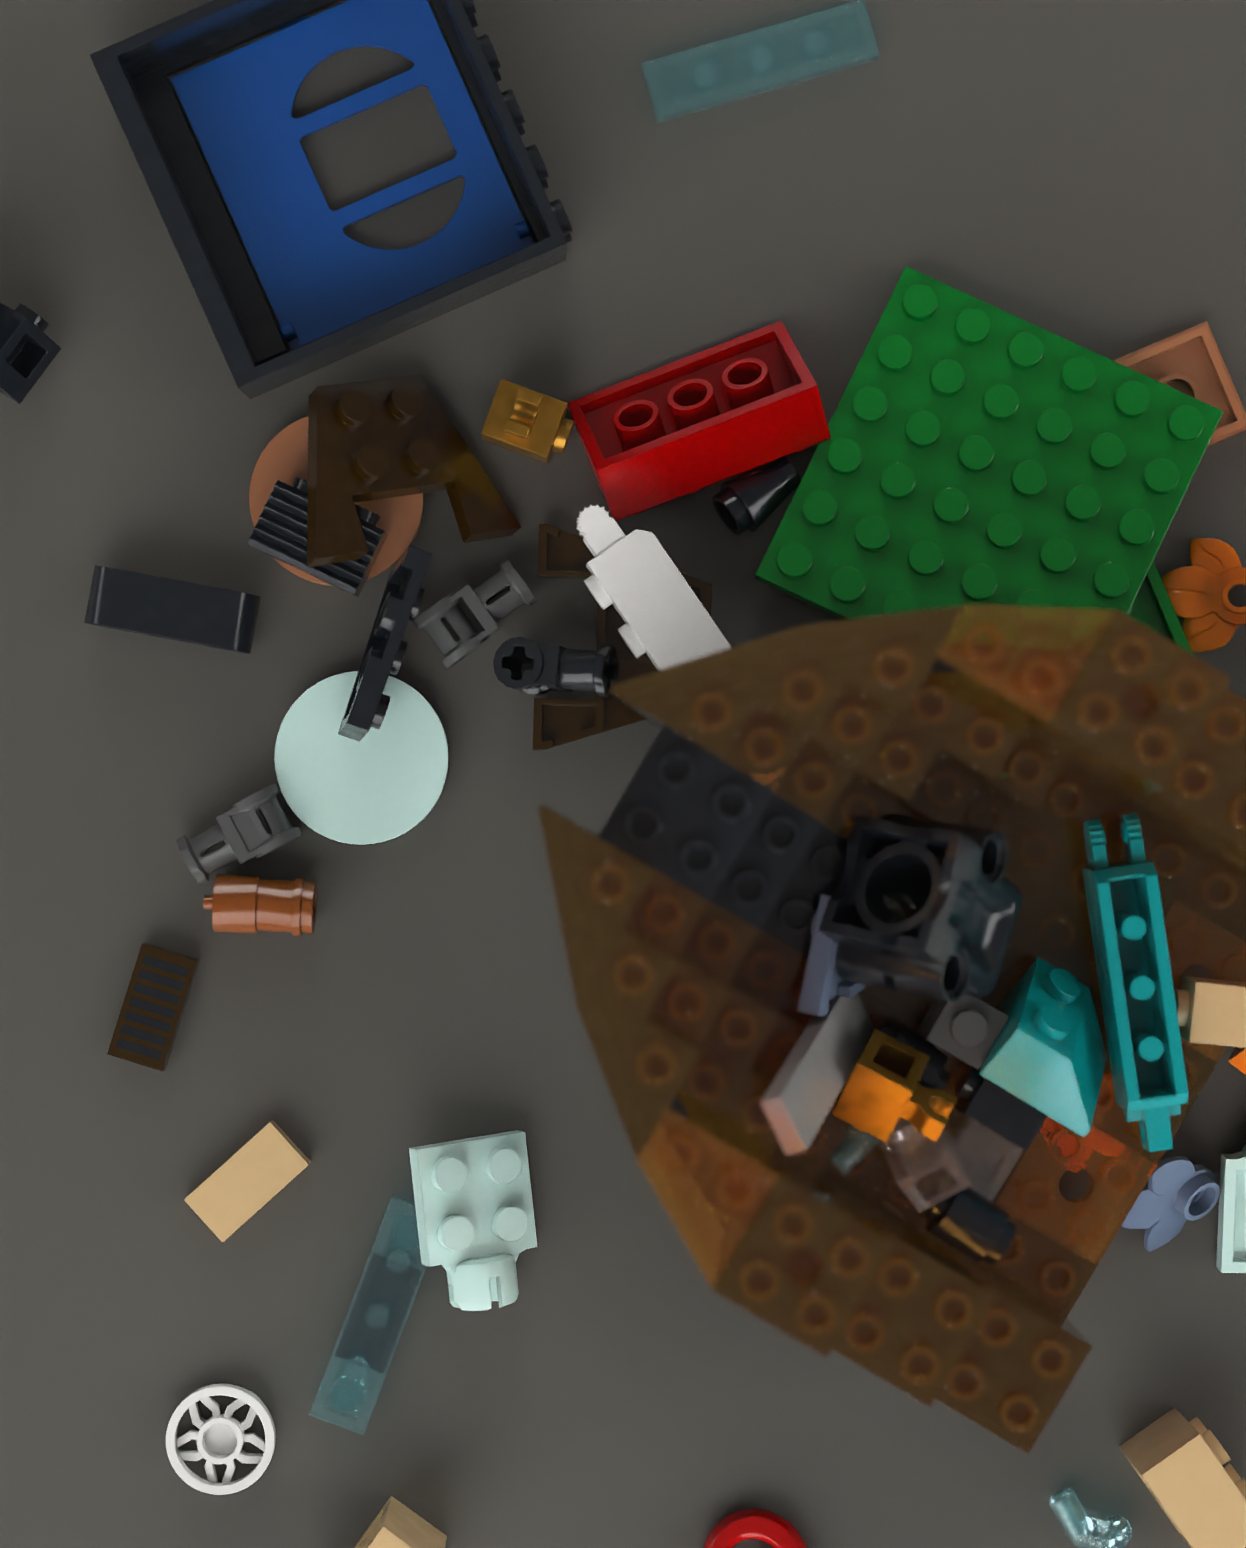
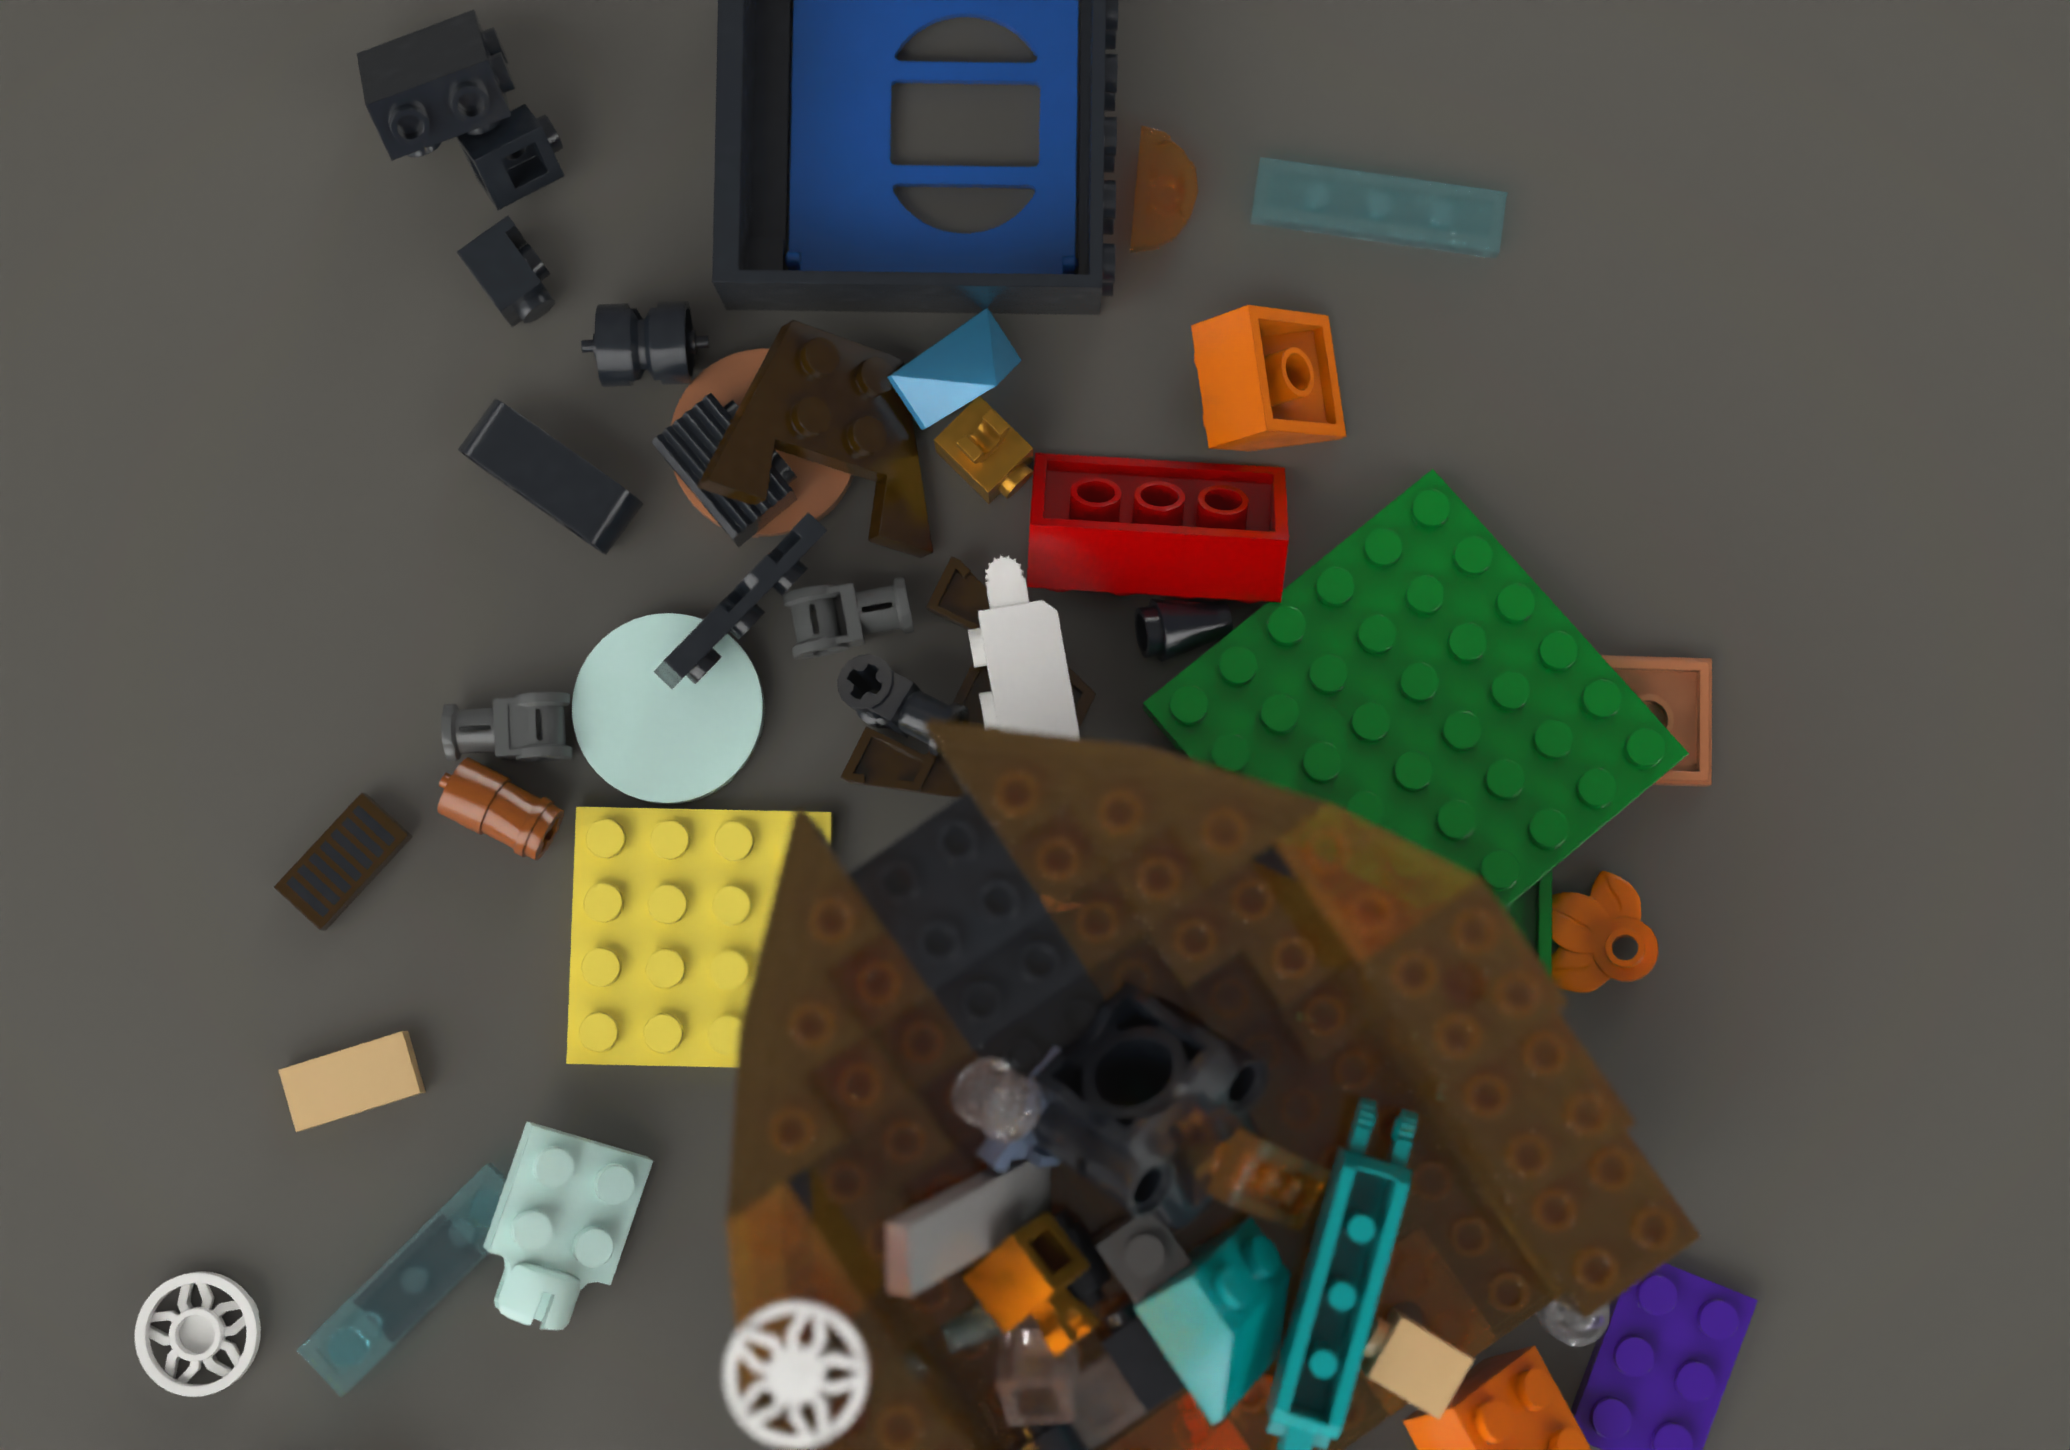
camera: 25 degrees right, 5 degrees down
(55, 453) = (509, 274): none -> black brick
(208, 457) = (629, 344): none -> black wheel
(462, 935) = (669, 930): none -> light yellow plate
(470, 364) = (955, 369): none -> dark azure slope
(573, 130) = (1163, 191): none -> clear orange plate
(734, 253) = (1267, 379): none -> orange slope
(750, 1254) = (796, 1374): none -> white wheel
(796, 960) = (996, 1100): none -> clear wheel
(1040, 923) = (1266, 1179): none -> clear orange plate

